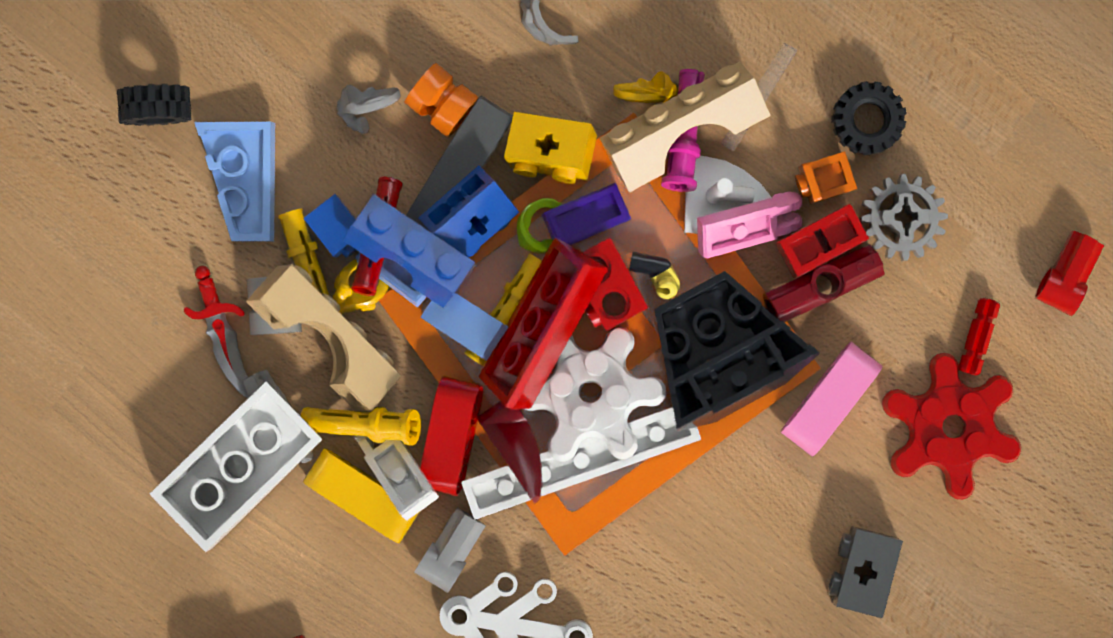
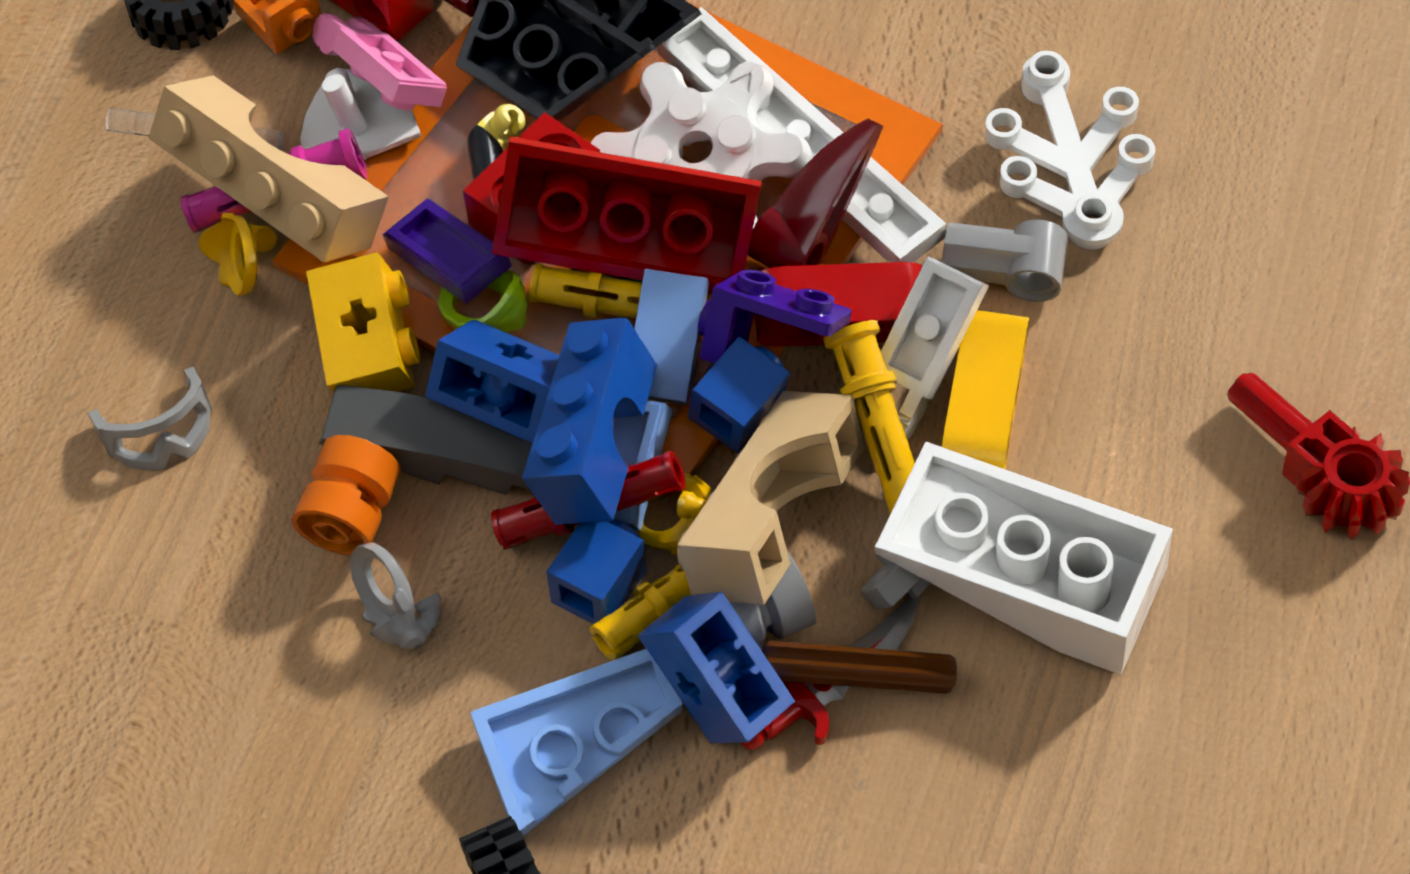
camera: 110 degrees left, 30 degrees down
(213, 346) = (862, 666): none -> reddish brown axle
(231, 263) = (716, 668): none -> blue brick
(409, 350) = (738, 393): none -> blue brick
(440, 387) = (752, 291): none -> dark purple bracket

